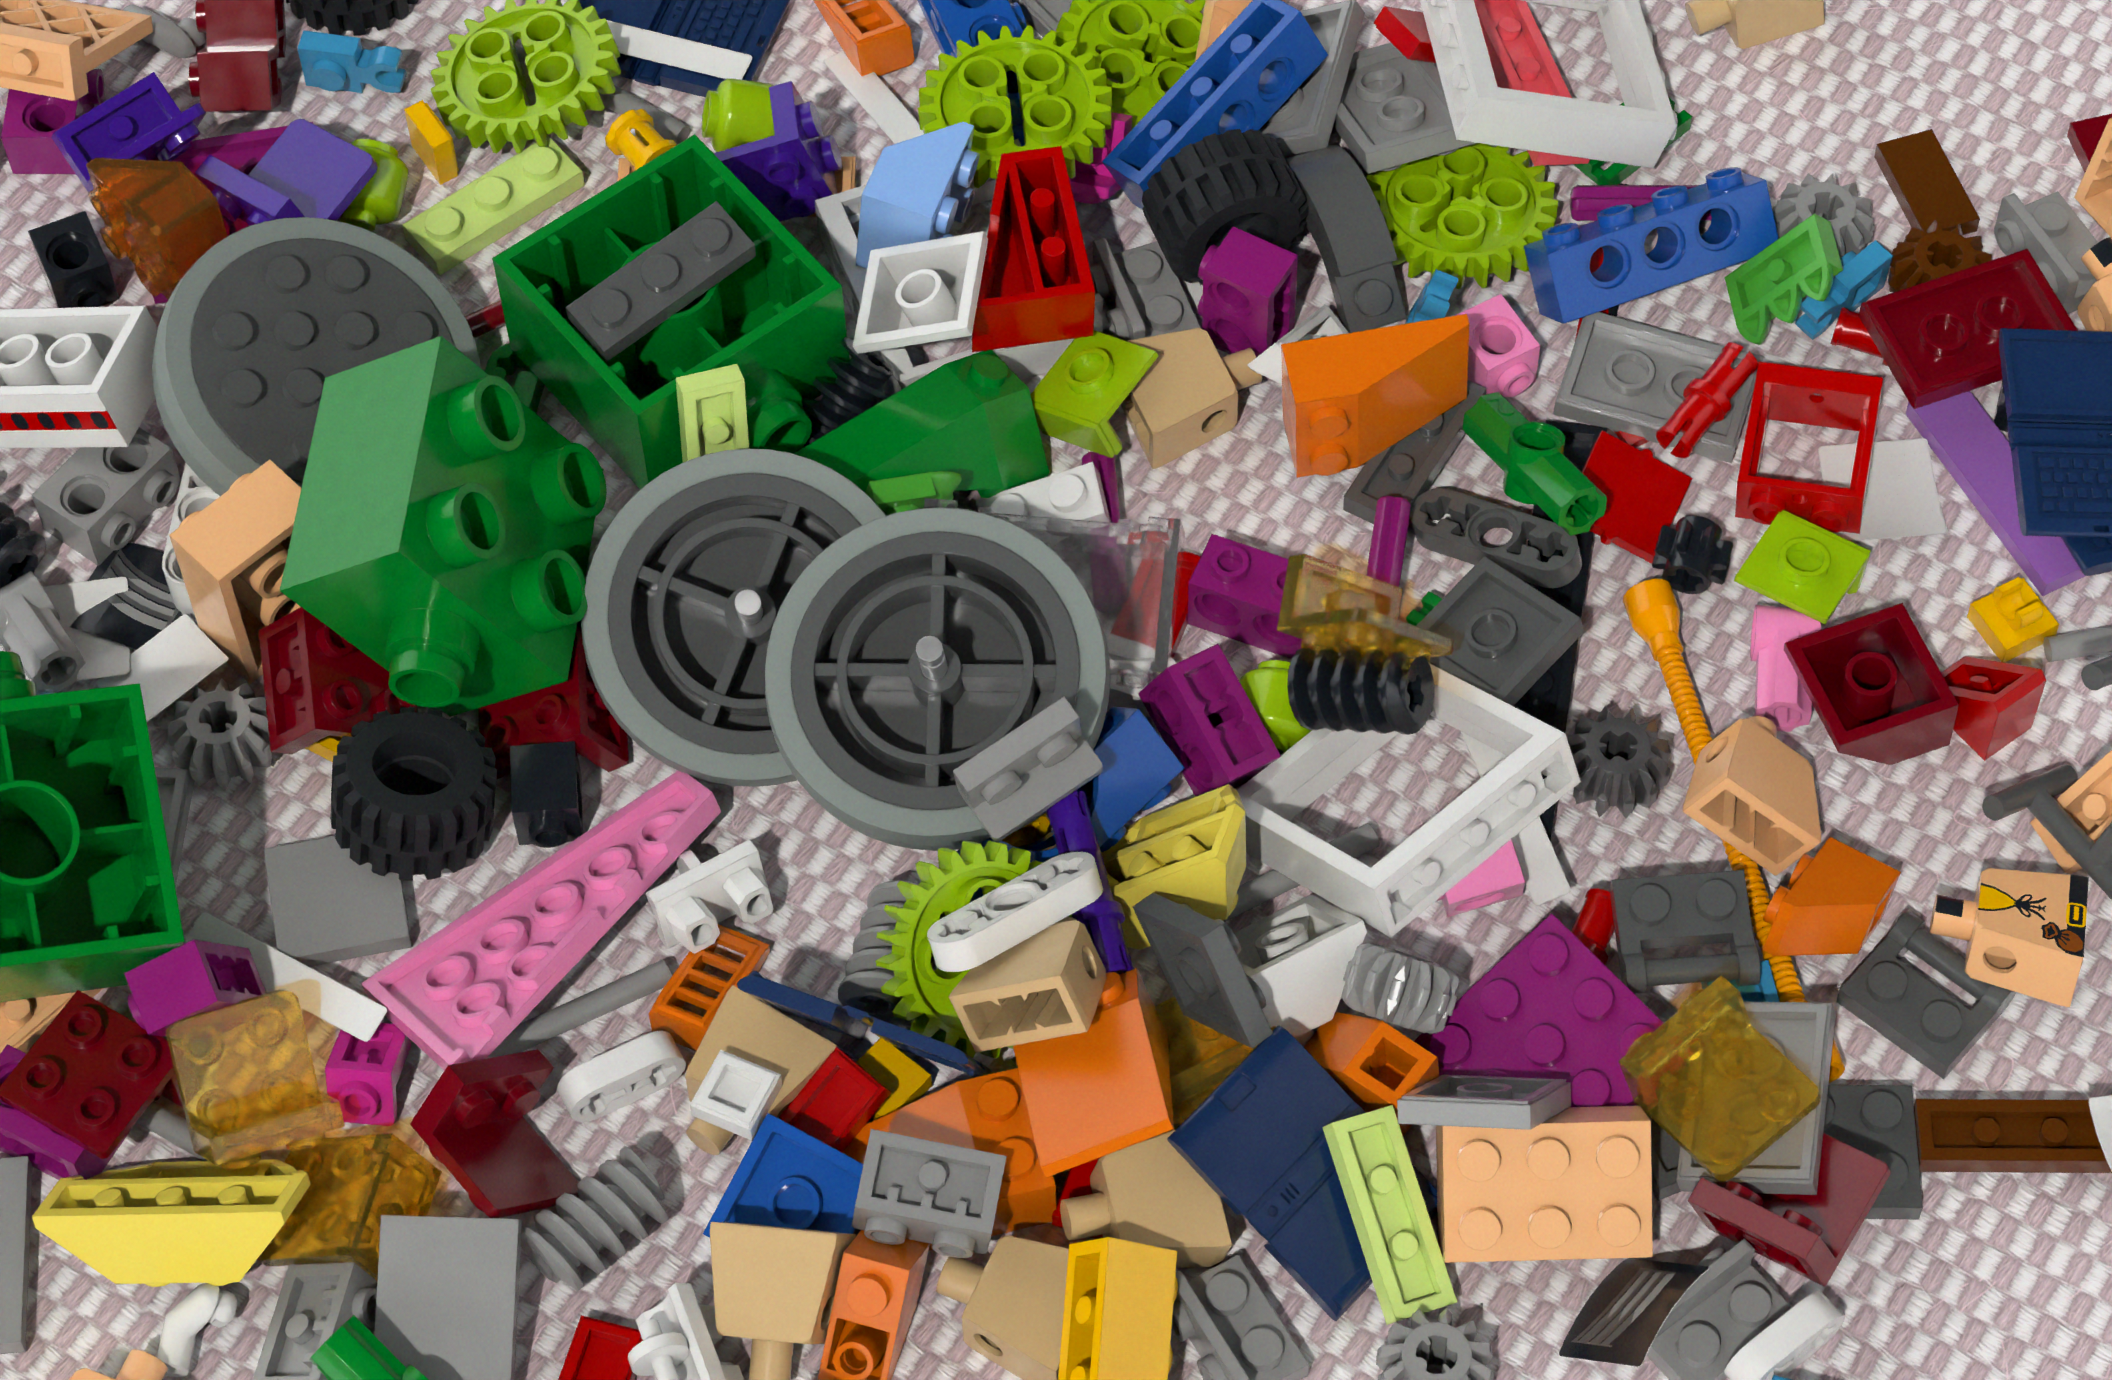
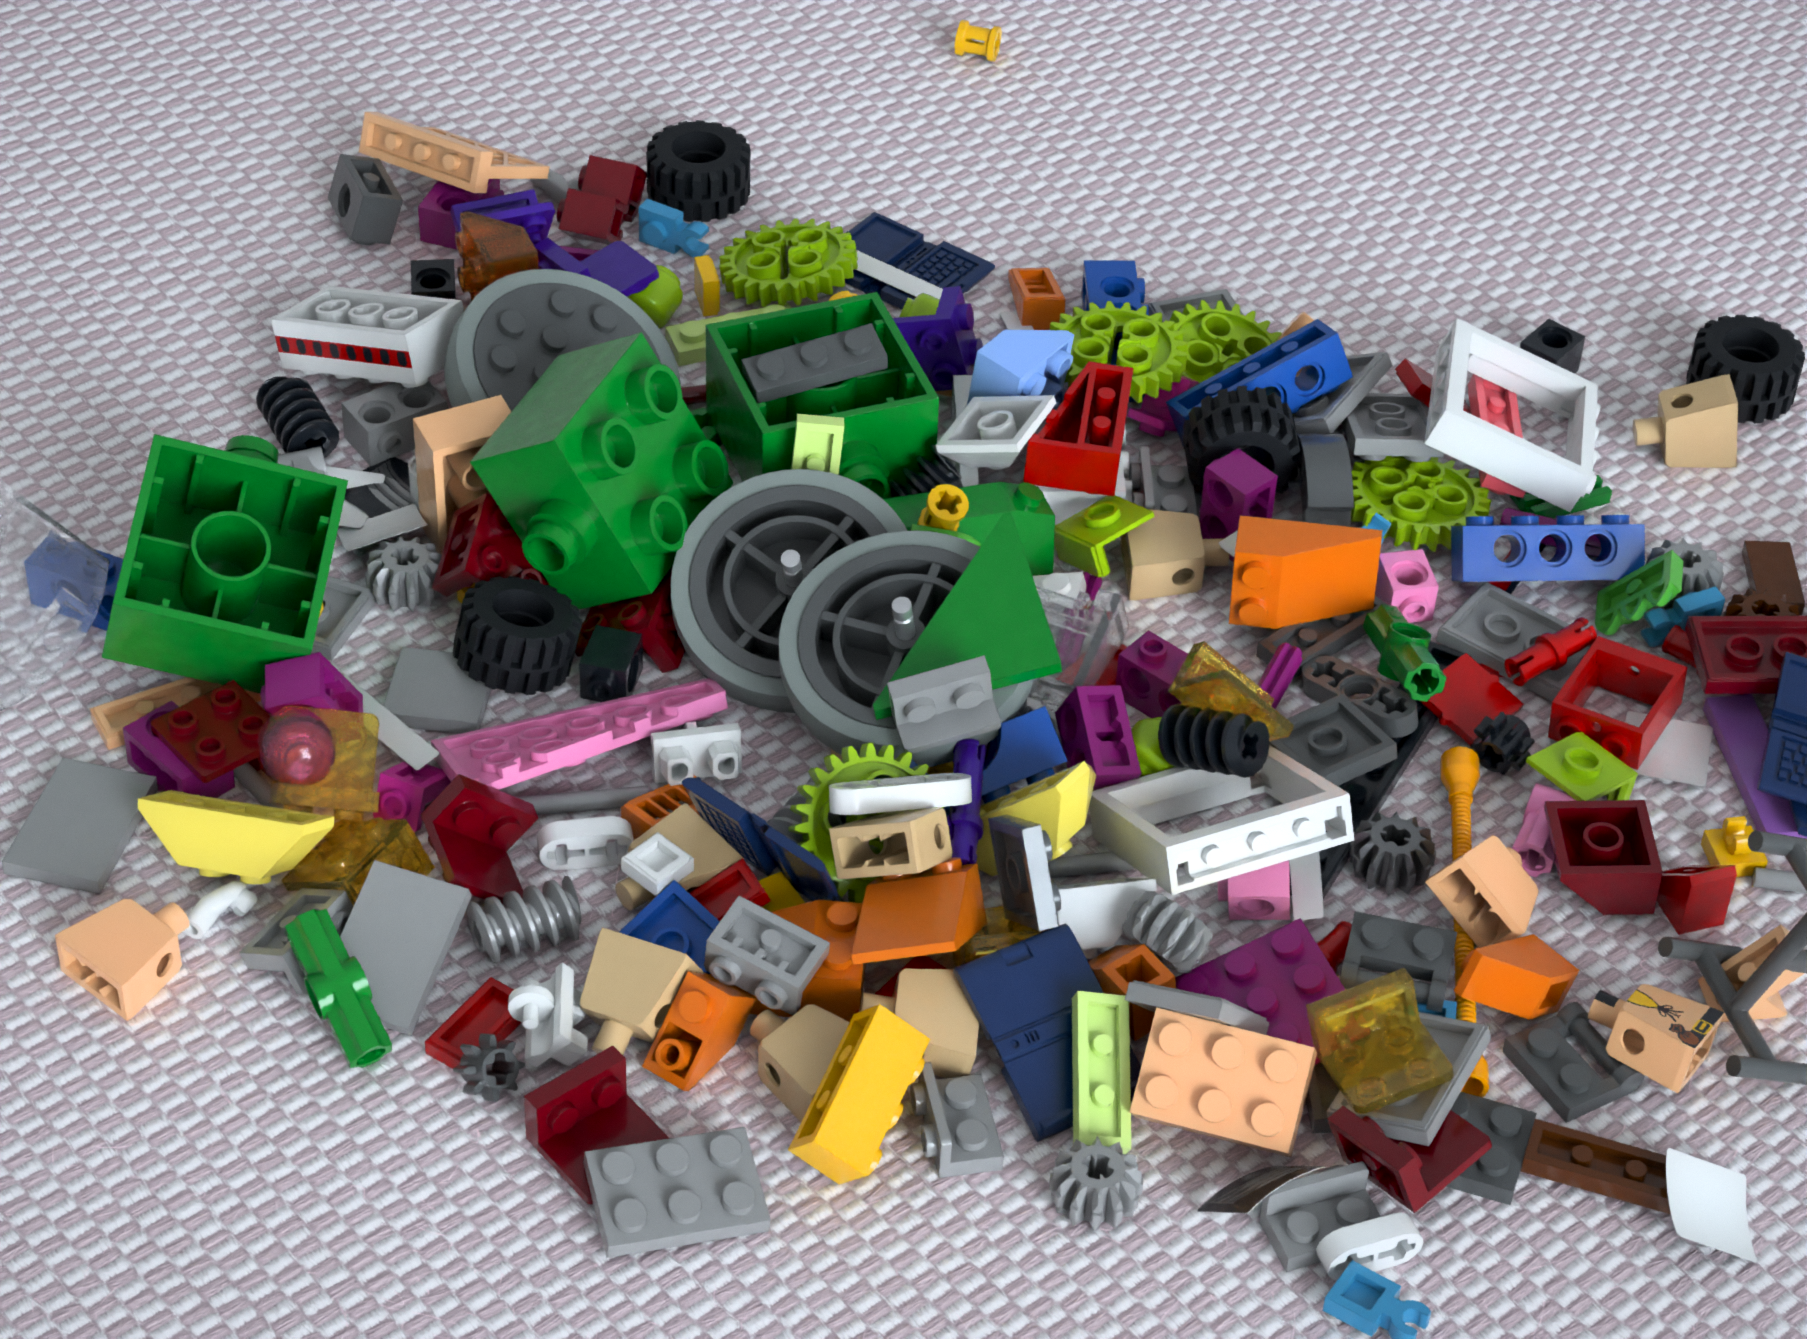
camera: 15 degrees right, 15 degrees down
(209, 1073) = (297, 746): none -> clear pink hair
(898, 434) = (944, 508): none -> yellow bush
(1033, 632) = (987, 613): none -> green tile

